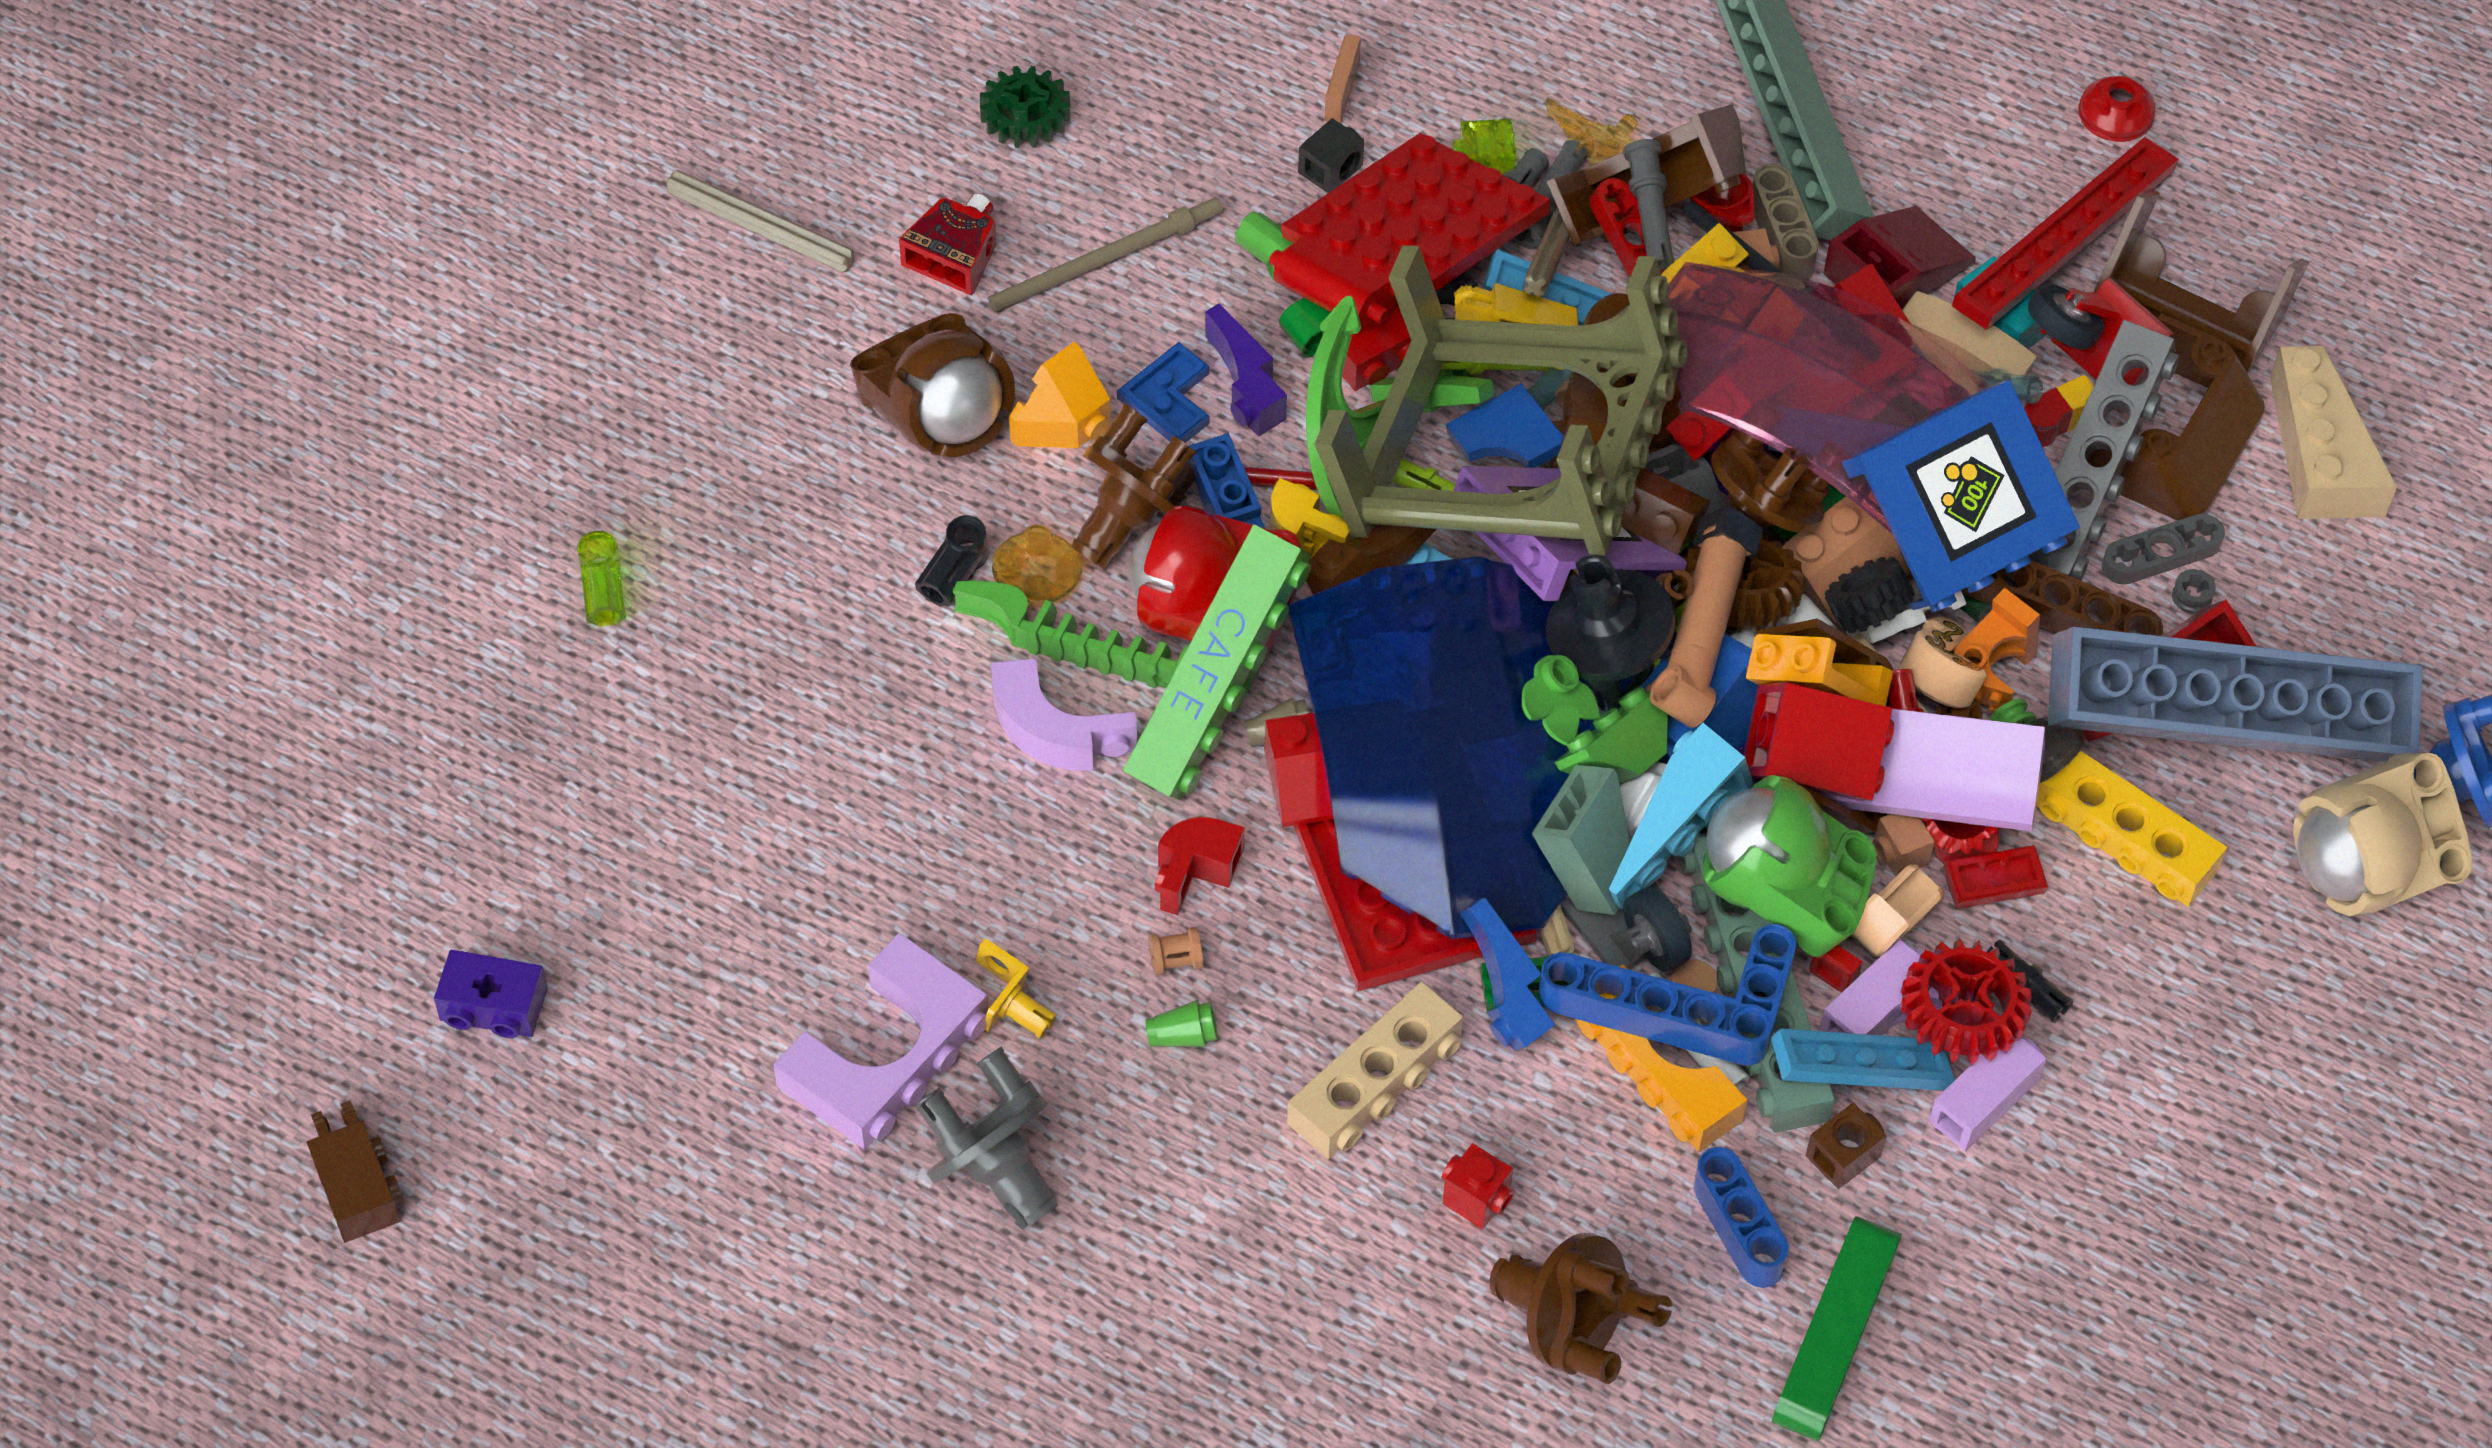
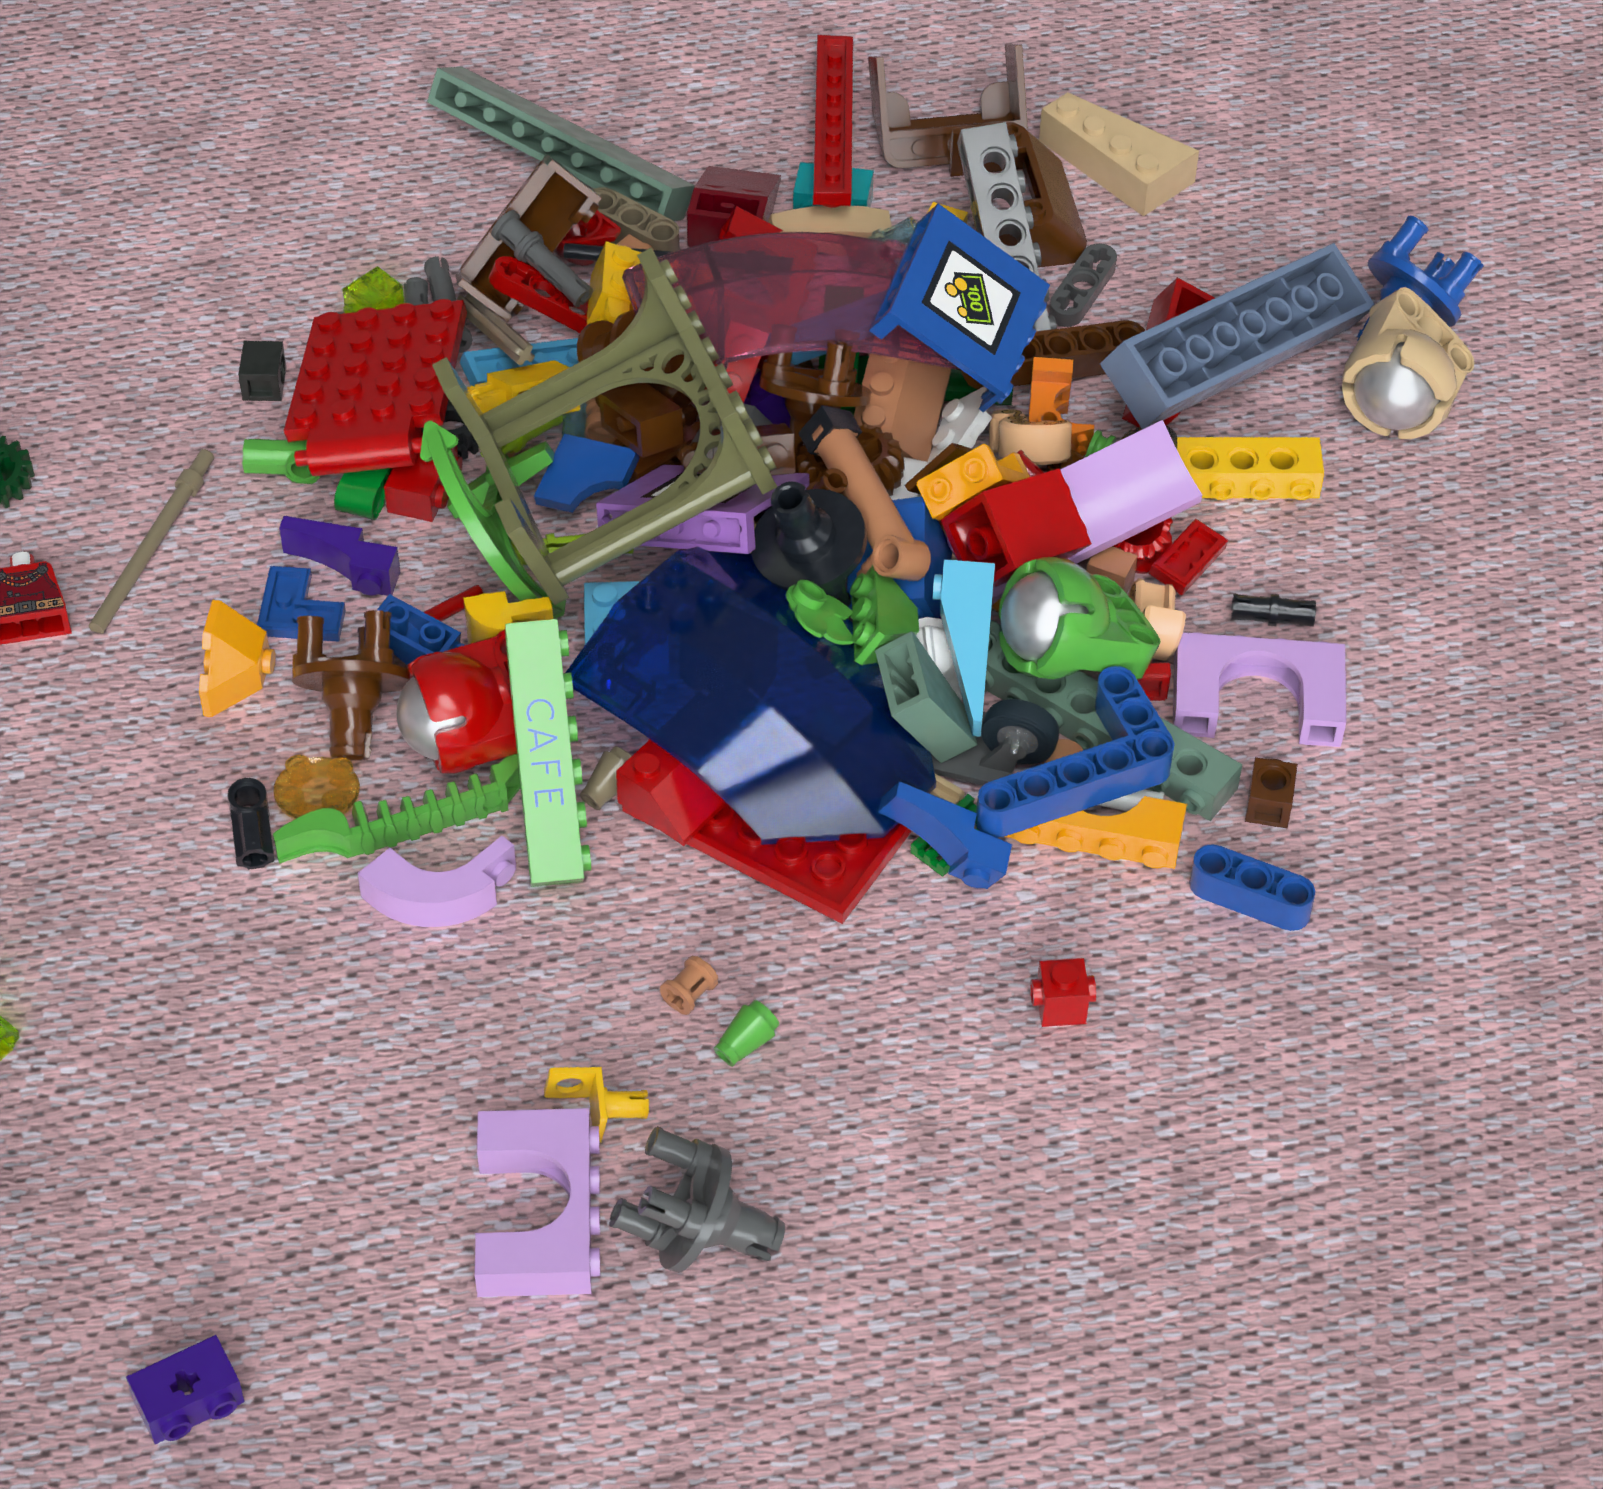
camera: 40 degrees left, 5 degrees down
(938, 385) = (119, 703): reddish brown piece -> none
(1199, 850) = (638, 904): red brick -> none
(1342, 78) = (219, 314): nougat tile -> none
(1345, 561) = (583, 610): reddish brown slope -> none
(1416, 1017) = (907, 1025): tan brick -> none
(1576, 1303) = (1212, 1017): reddish brown piece -> none
(1599, 139) = (452, 246): clear yellow piece -> none
(1836, 1328) = (1384, 916): green beam -> none
(1860, 1060) = (1233, 725): dark azure plate -> none
(1869, 594) = (941, 420): black tyre -> none
(1960, 979) = (1241, 639): red gear -> none
(2089, 321) = (919, 167): plate -> none
(2116, 119) = (777, 37): red piece -> none
(2198, 579) = (1130, 290): dark grey bush -> none

